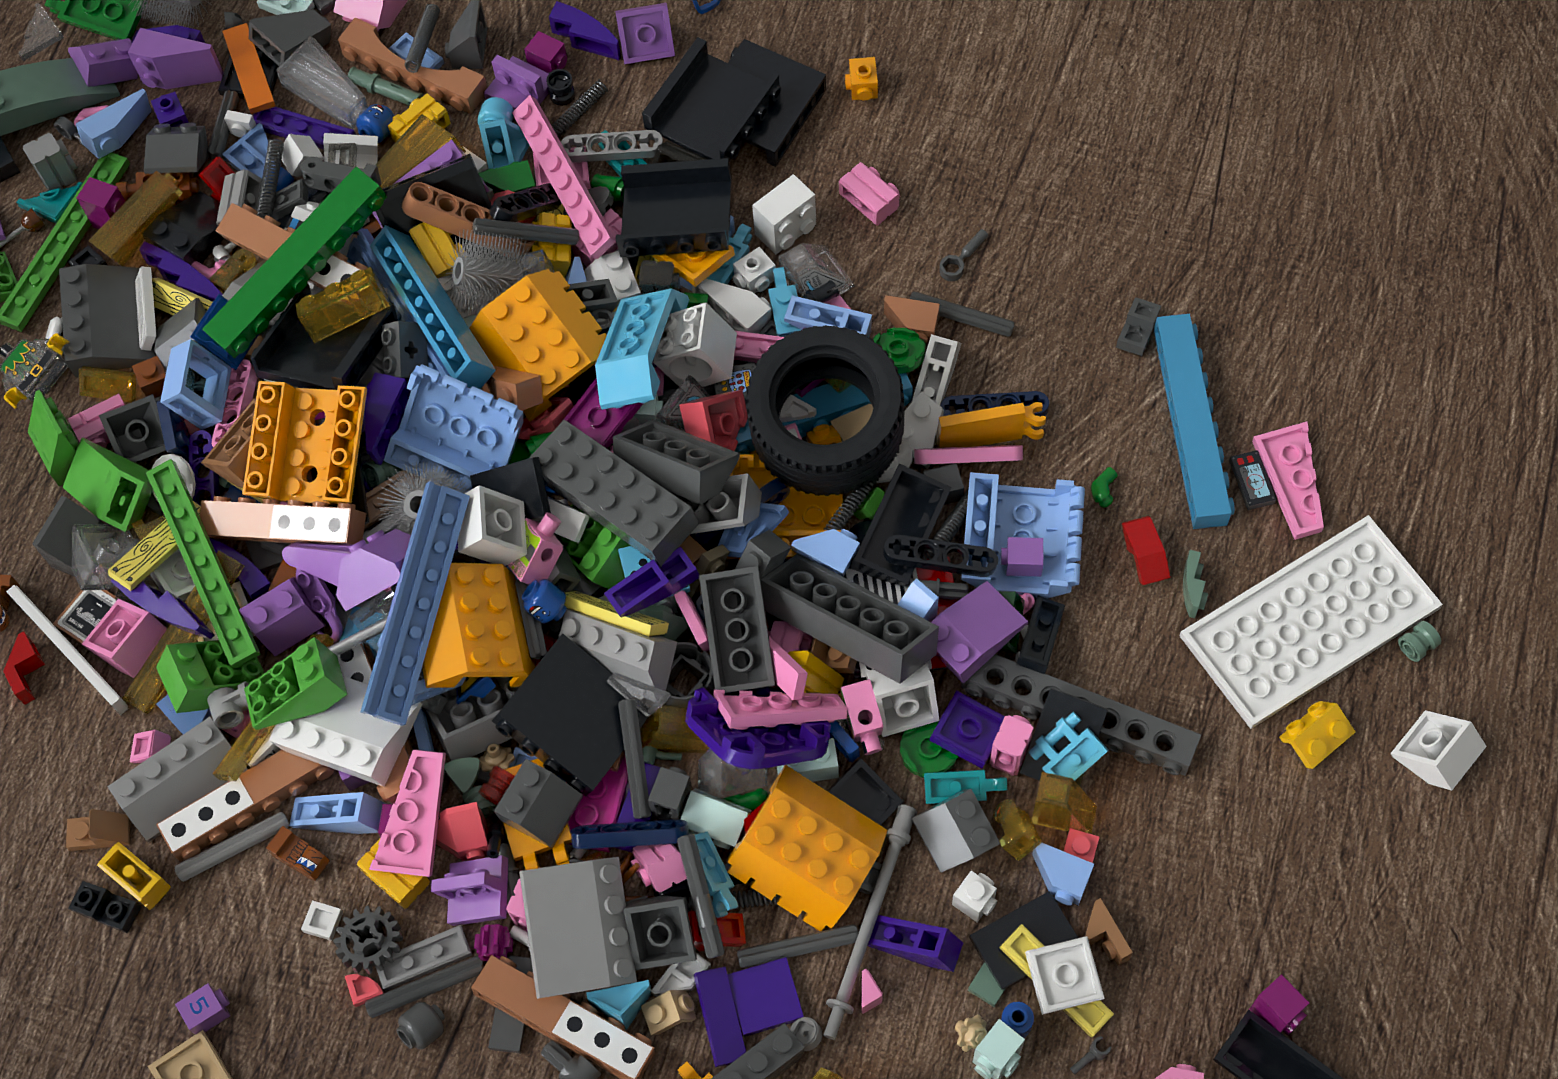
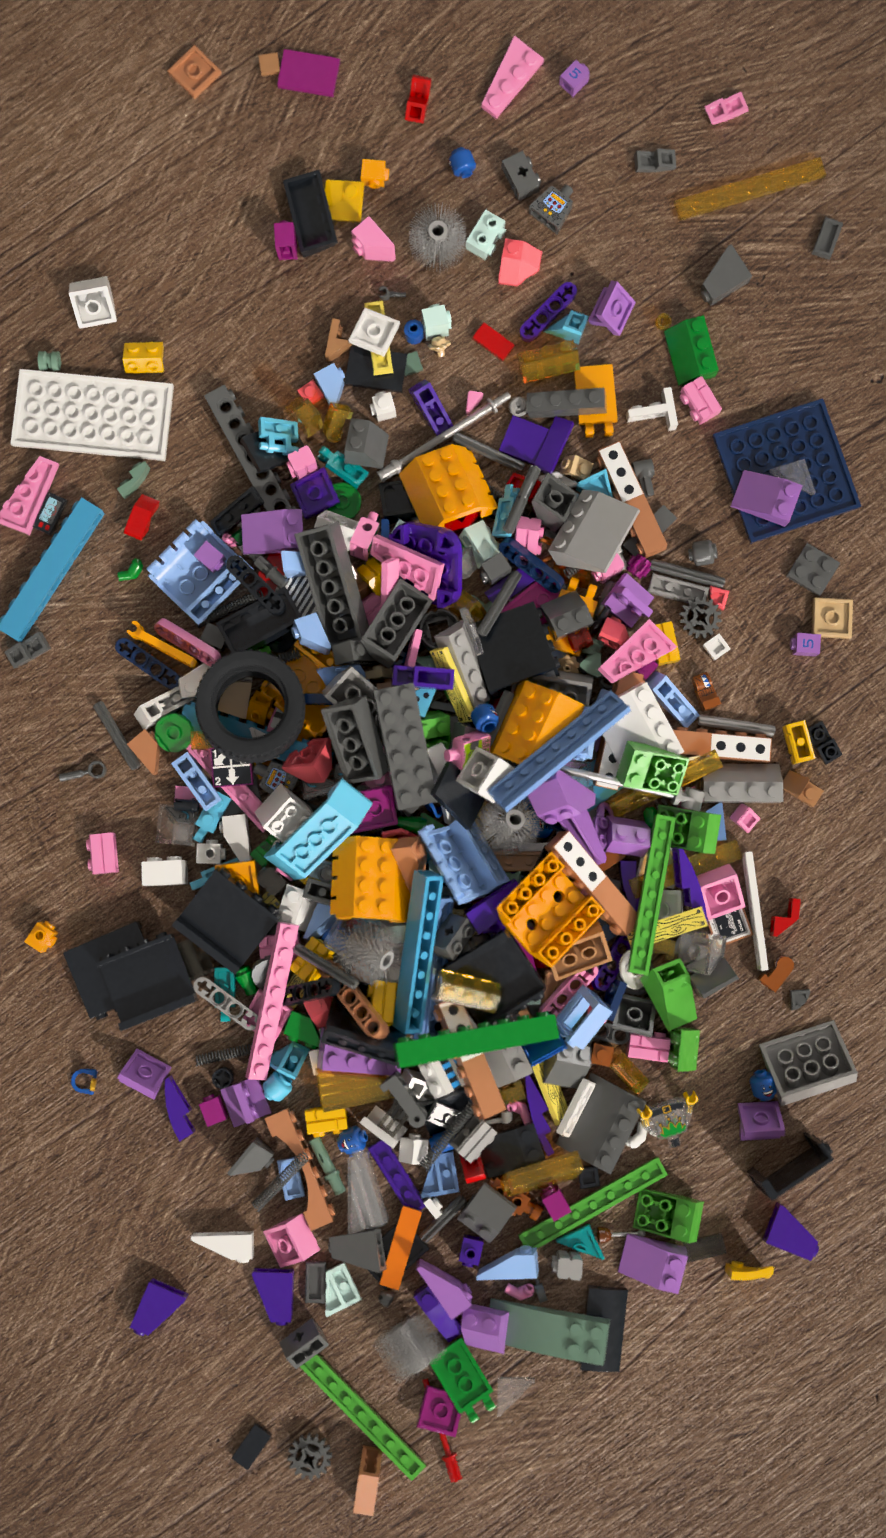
camera: 145 degrees left, 20 degrees up
(267, 658) = (648, 815): none -> green arm

